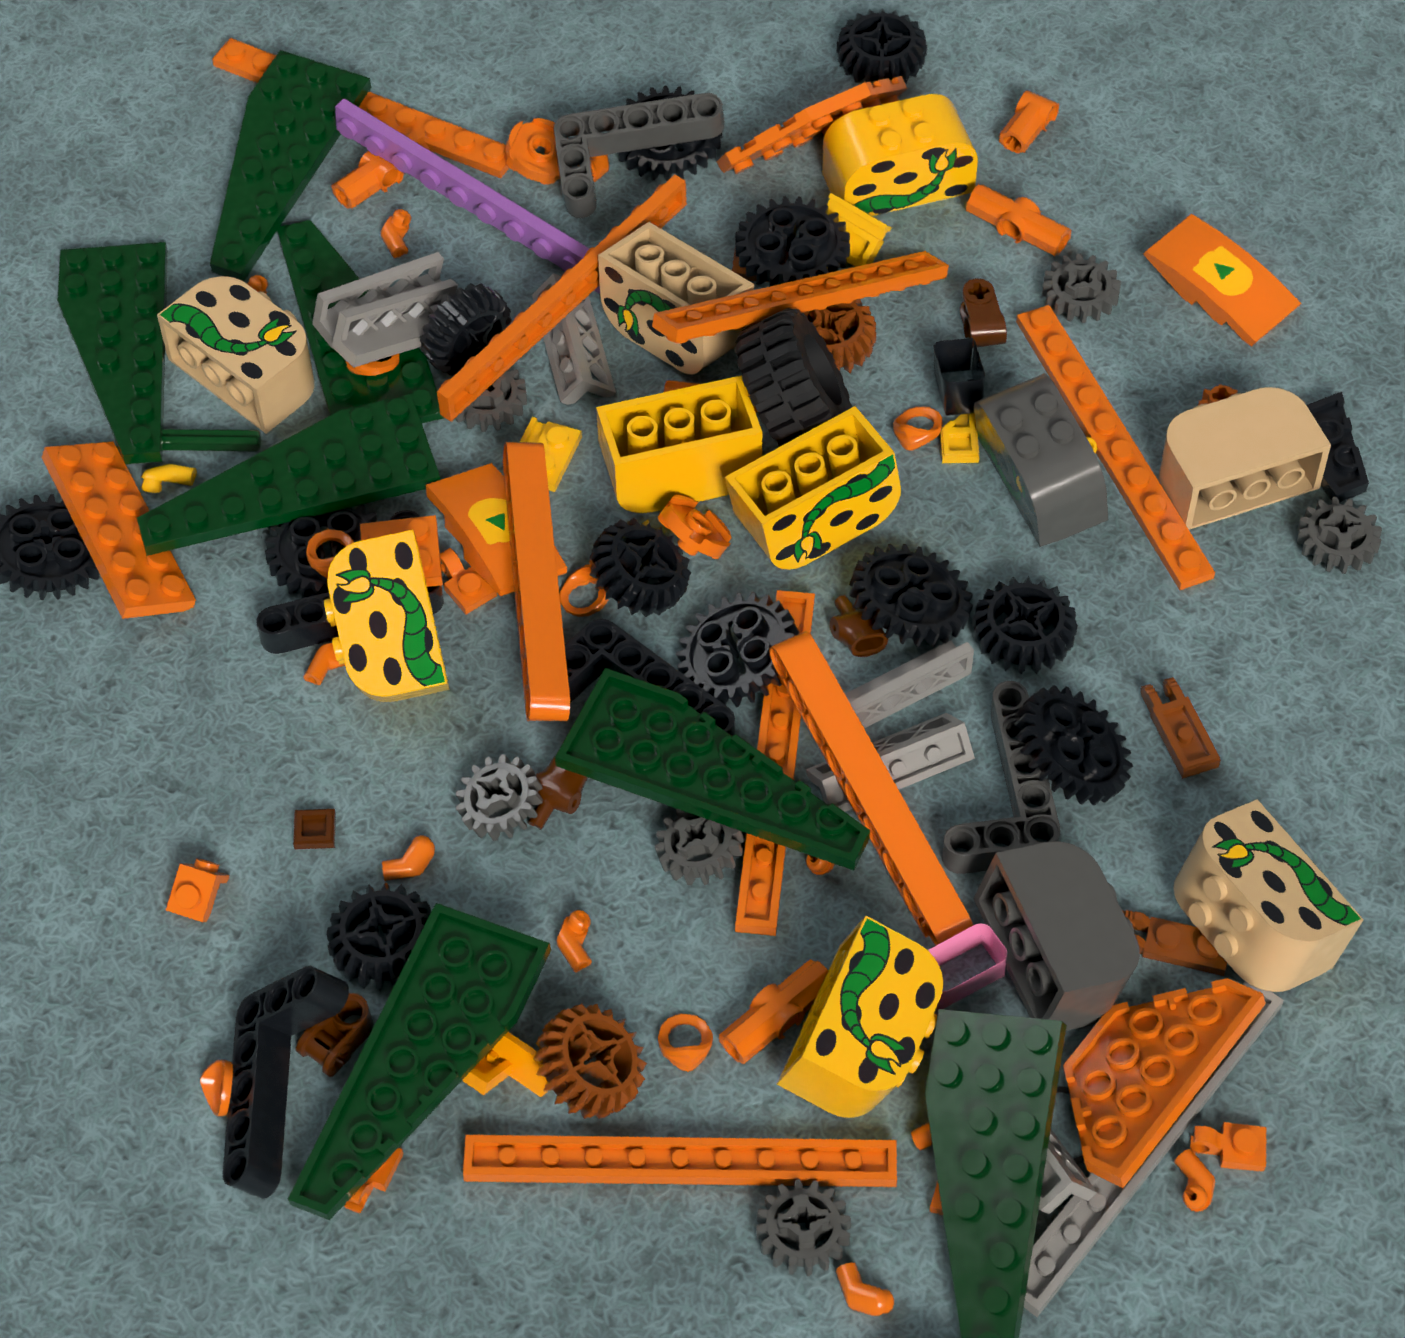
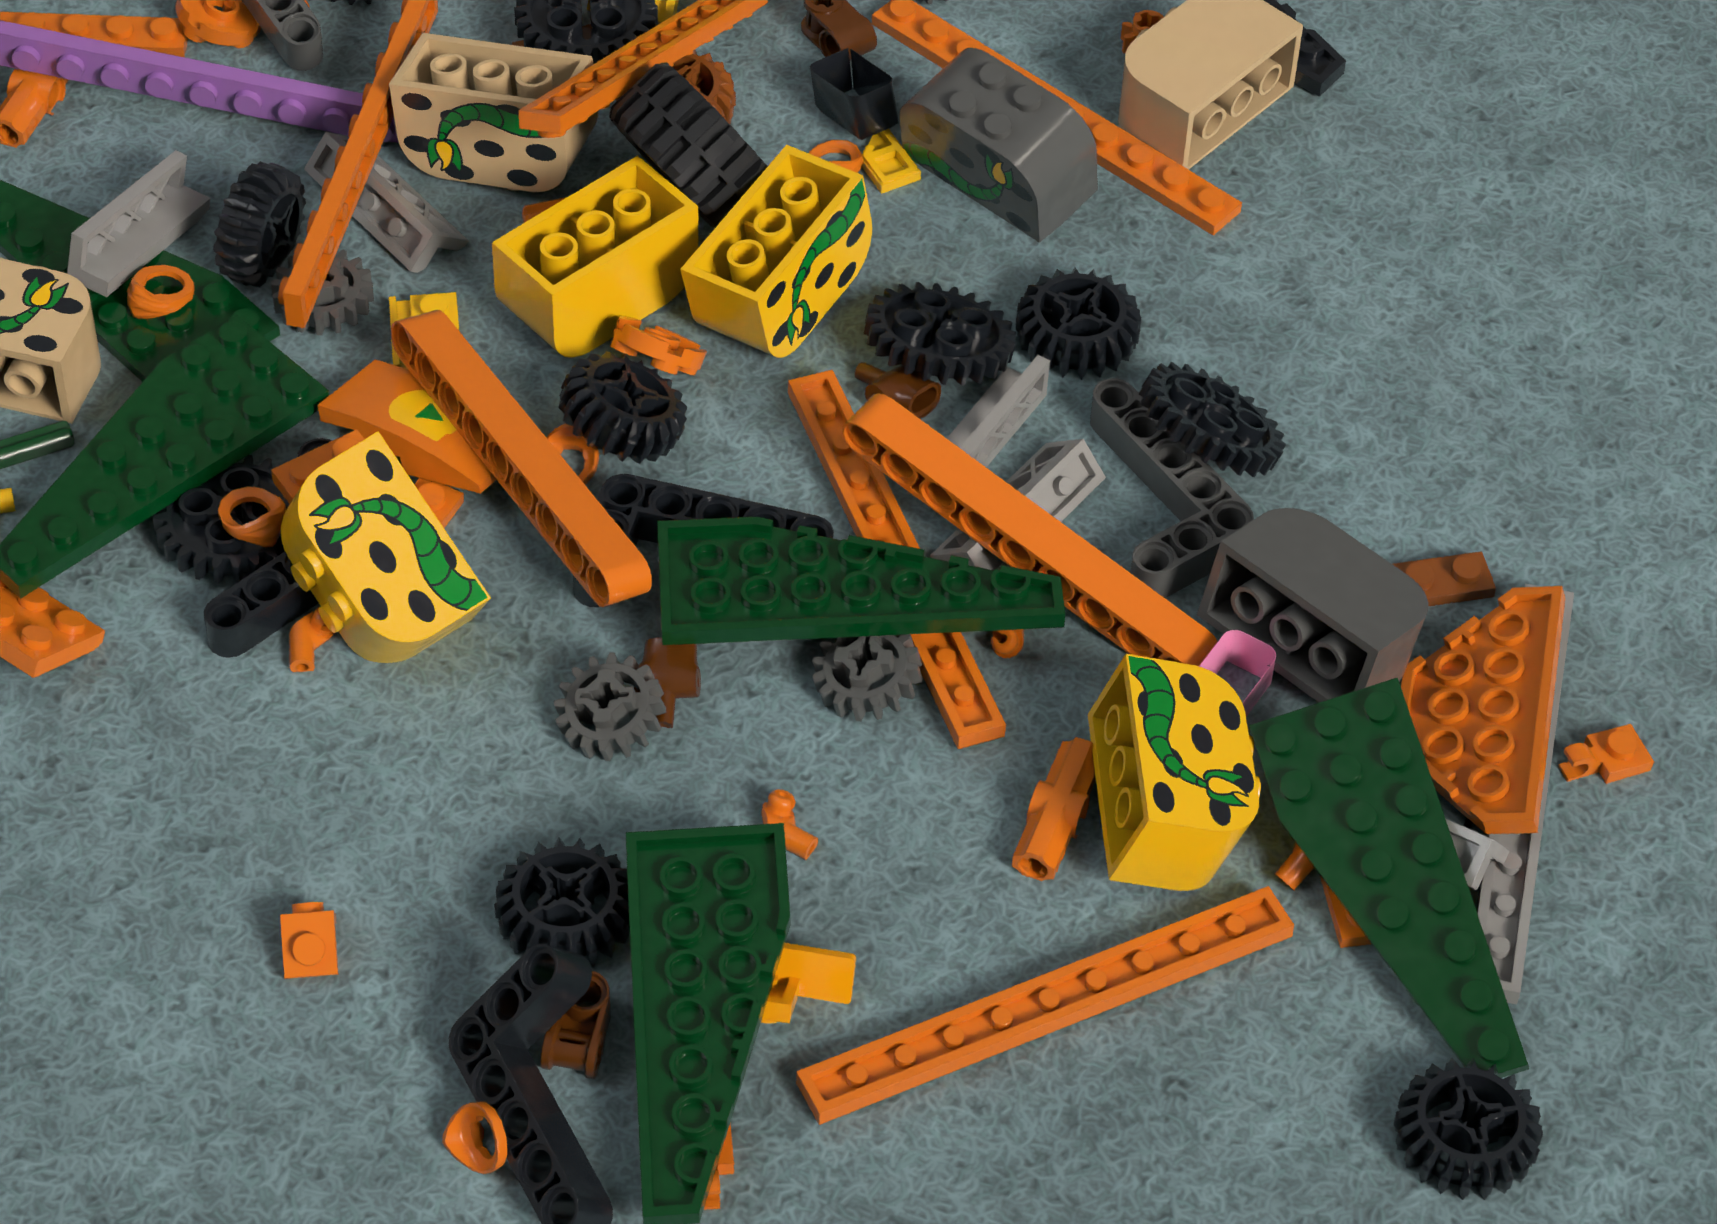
camera: 30 degrees left, 5 degrees down
(314, 829) = (407, 824): reddish brown tile -> none
(394, 232) = (93, 153): orange arm -> none
(395, 331) = (170, 244): light grey fence -> none
(413, 862) = (548, 814): orange arm -> none
(600, 1085) = (894, 935): dark orange gear -> none
(685, 1057) = (983, 898): orange piece -> none
(712, 654) = (802, 426): black gear -> none
(785, 1229) = (1224, 1014): dark grey gear -> none
(863, 1296) = (1324, 1059): orange arm -> none
(1181, 729) = (1302, 368): dark orange hinge -> none
(1200, 1181) = (1596, 804): orange arm -> none
(1263, 901) = (1502, 497): tan brick -> none
(1339, 535) = (1346, 122): dark grey gear -> none

